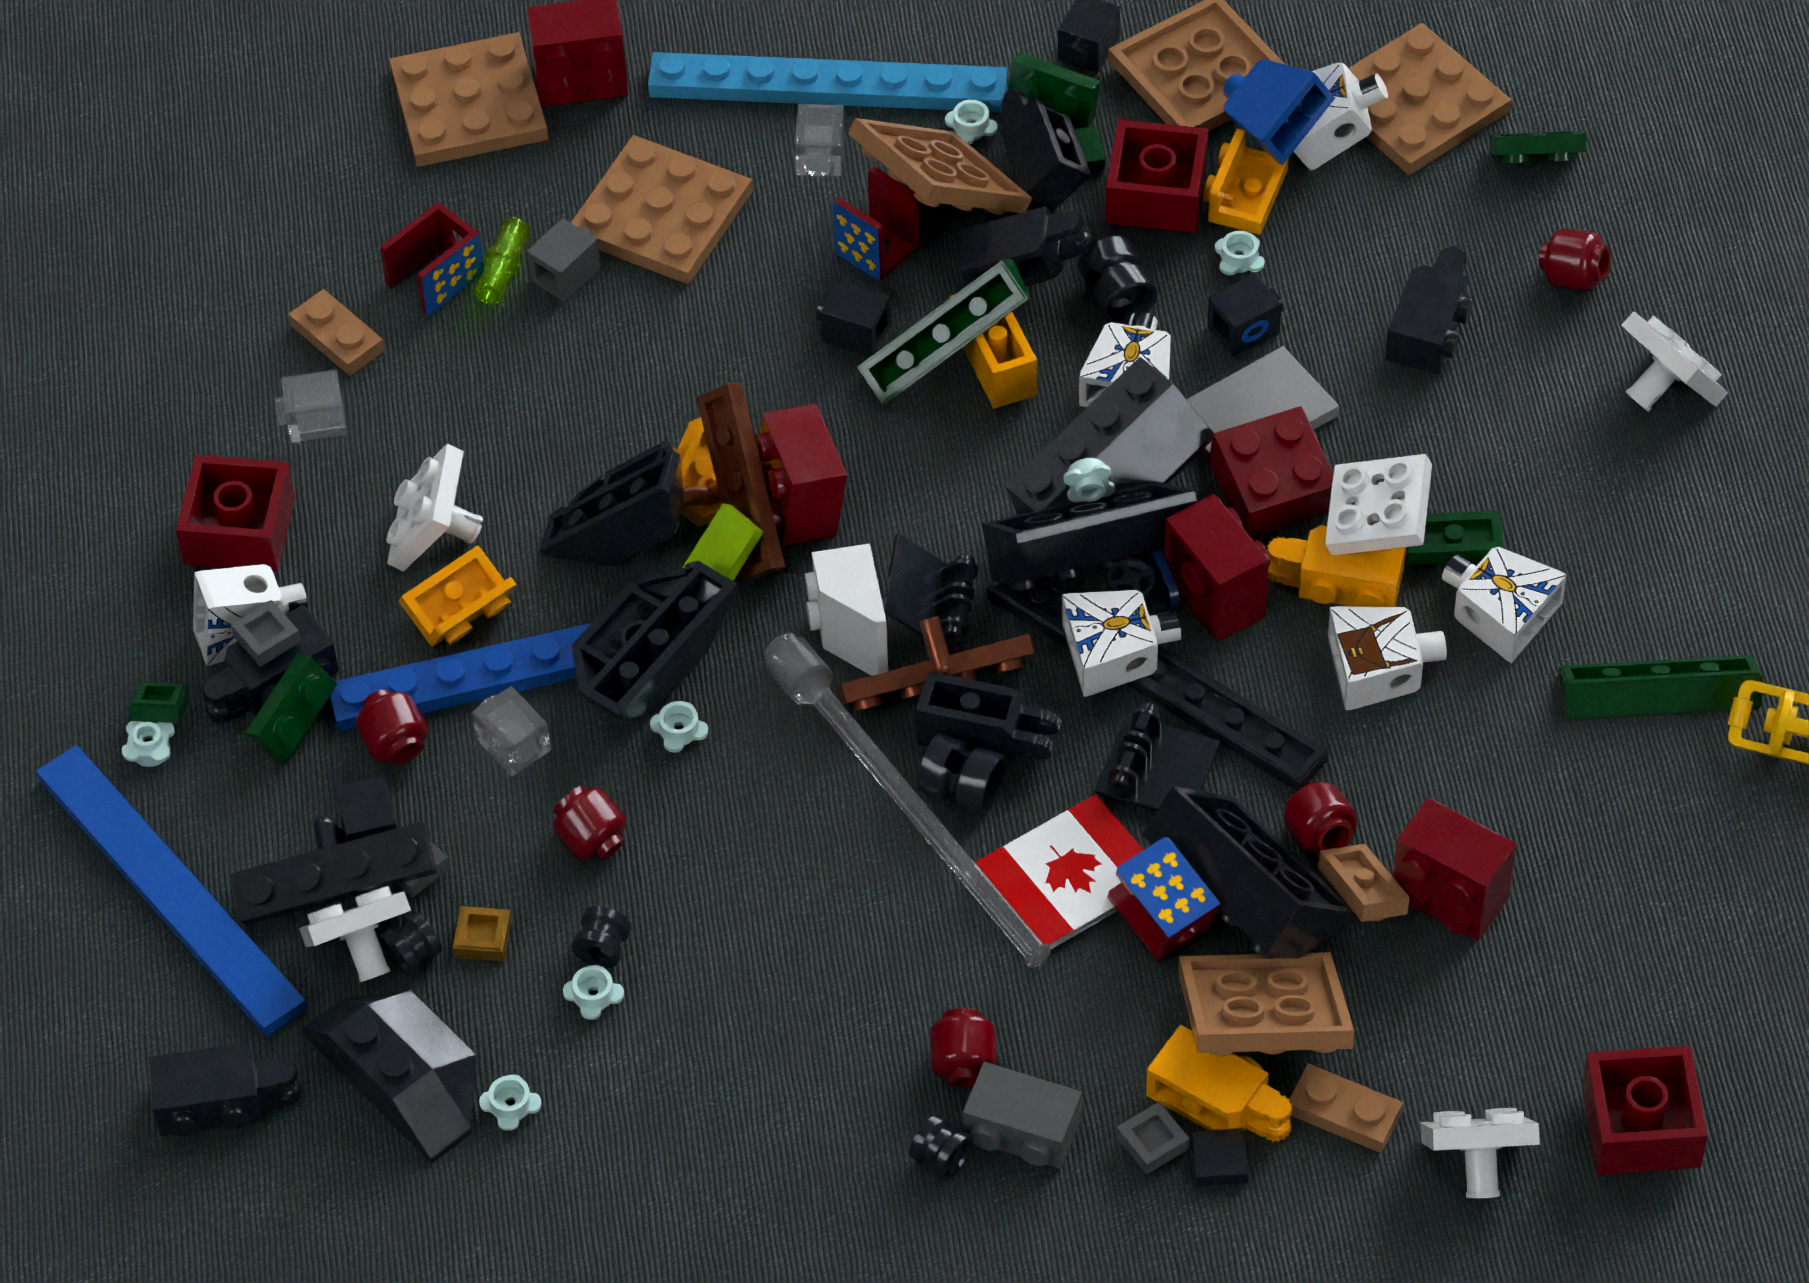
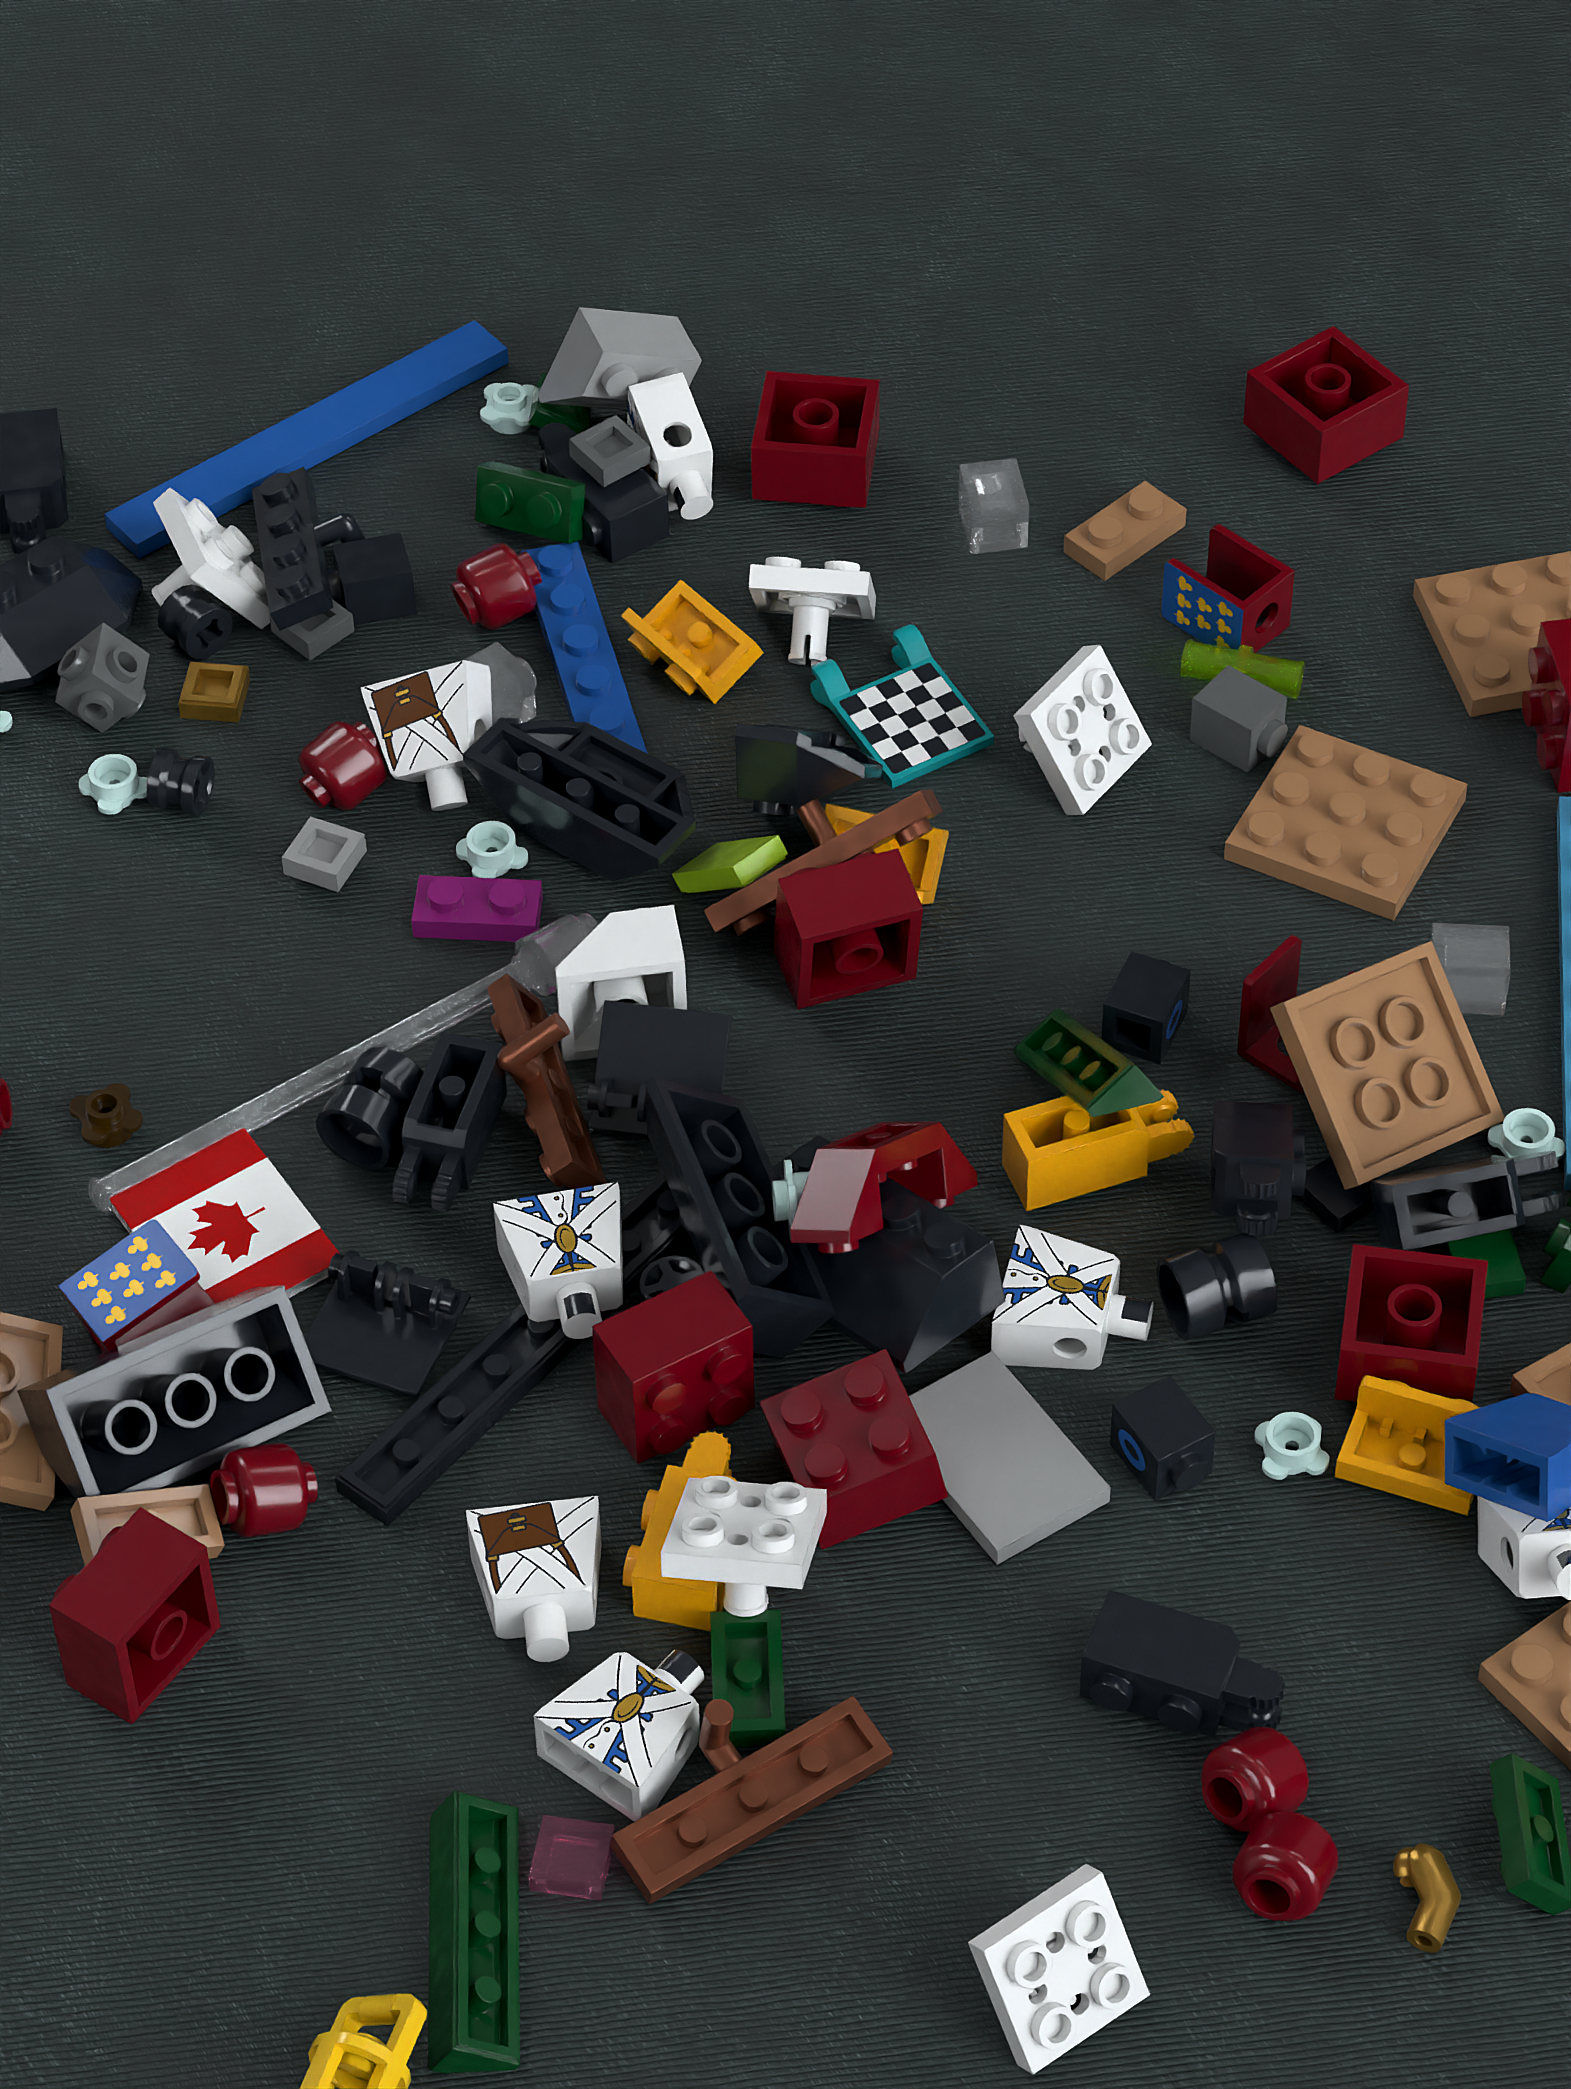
camera: 90 degrees right, 5 degrees down
(167, 626) = (613, 351): none -> light grey slope
(227, 190) = (1325, 404): none -> dark red brick
(471, 1002) = (102, 678): none -> dark grey brick
(534, 468) = (906, 718): none -> flag
(568, 745) = (429, 723): none -> torso
(587, 342) = (1069, 736): none -> white plate
(683, 833) = (324, 854): none -> light grey plate
(736, 735) = (476, 908): none -> magenta plate
(961, 971) = (106, 1116): none -> dark brown plate
(1077, 428) = (843, 1182): none -> dark red slope
(1513, 272) = (1252, 1777): none -> dark red head
(1547, 528) = (748, 1794): none -> copper plate
(1580, 194) = (1437, 1890): none -> pearl gold arm
(1598, 632) = (571, 1857): none -> clear pink tile

